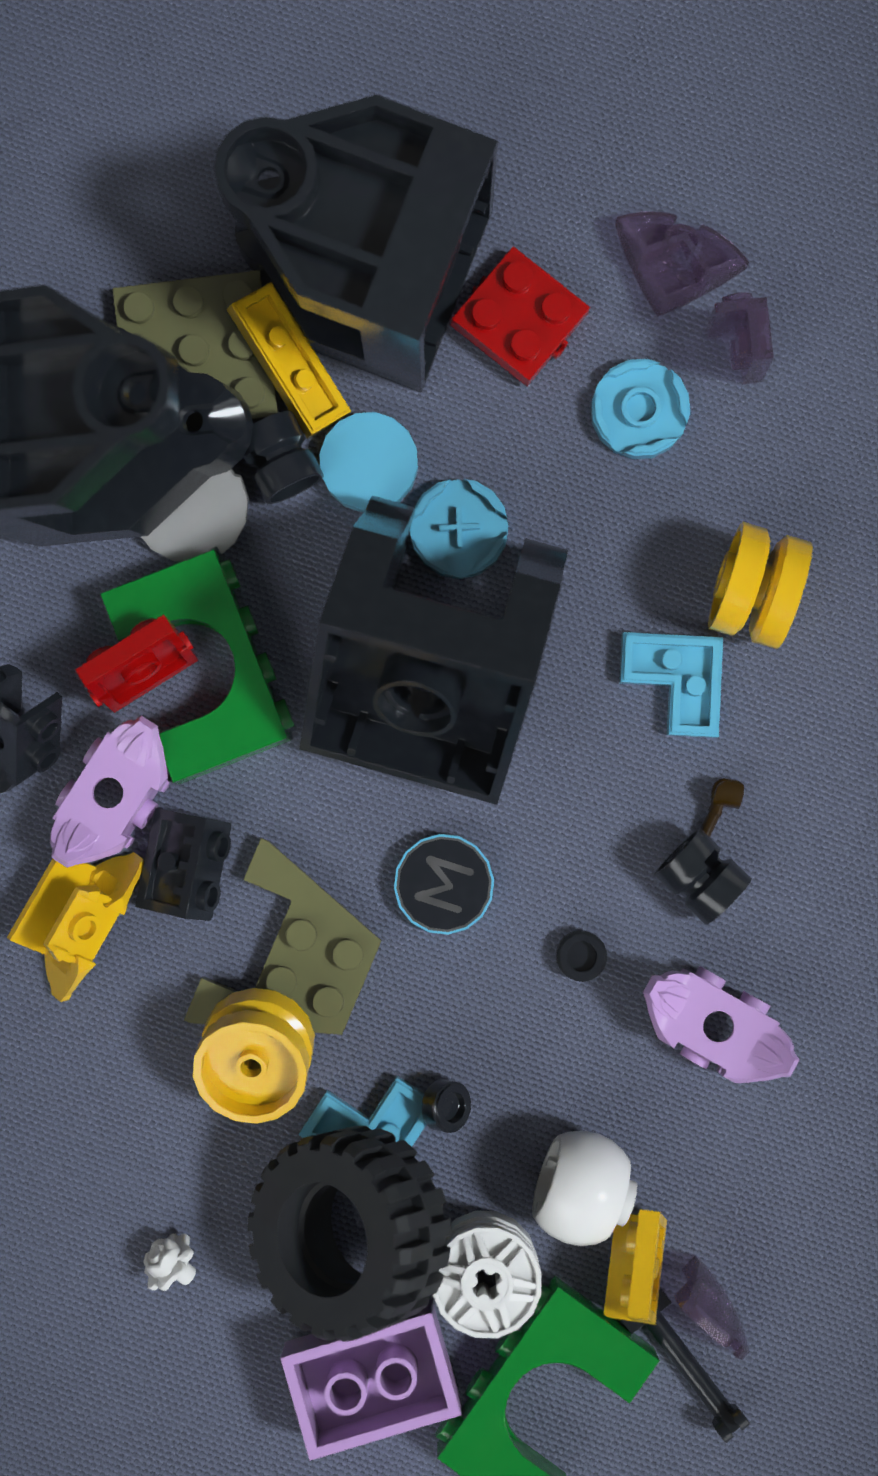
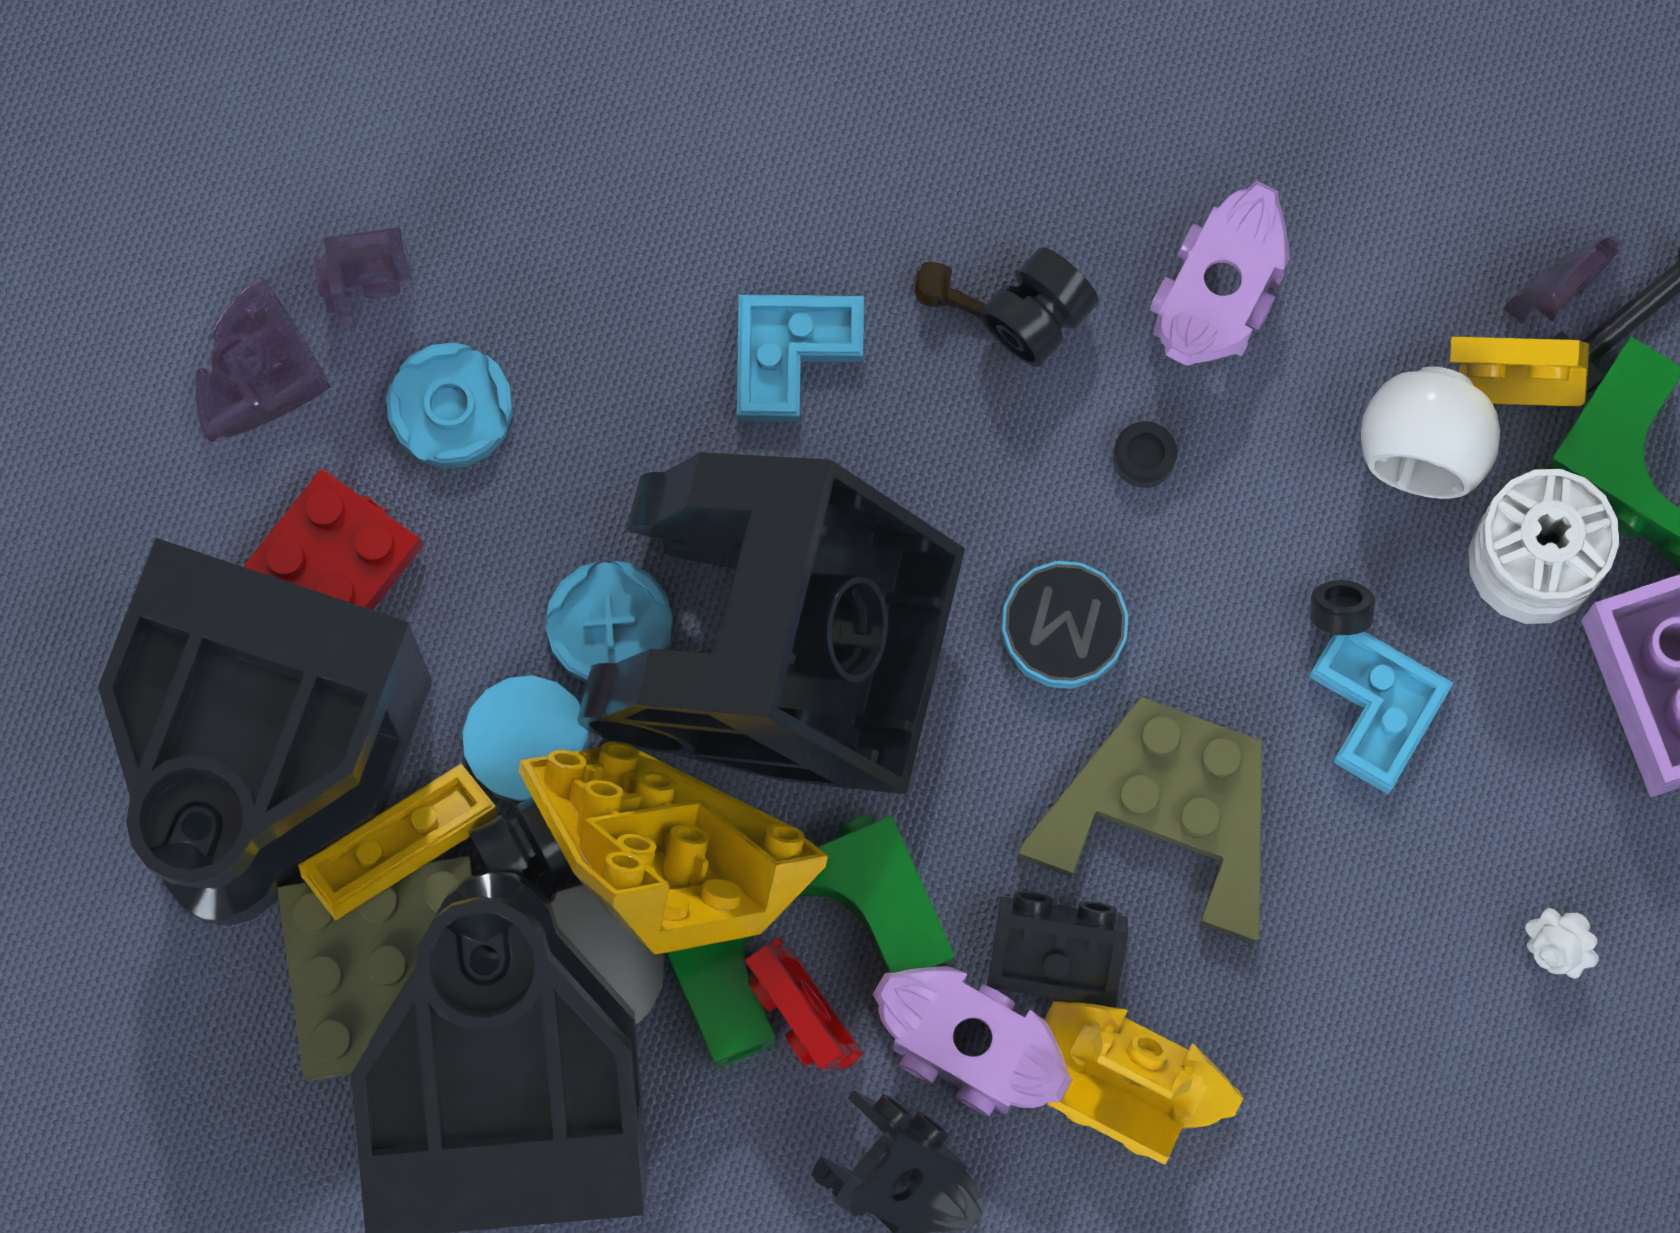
camera: 95 degrees left, 10 degrees down
(254, 1056) = (1295, 836): yellow wheel -> none
(258, 554) = (667, 849): none -> yellow wedge
(298, 1244) = (1517, 777): black tyre -> none
(765, 587) = (677, 245): yellow wheel -> none

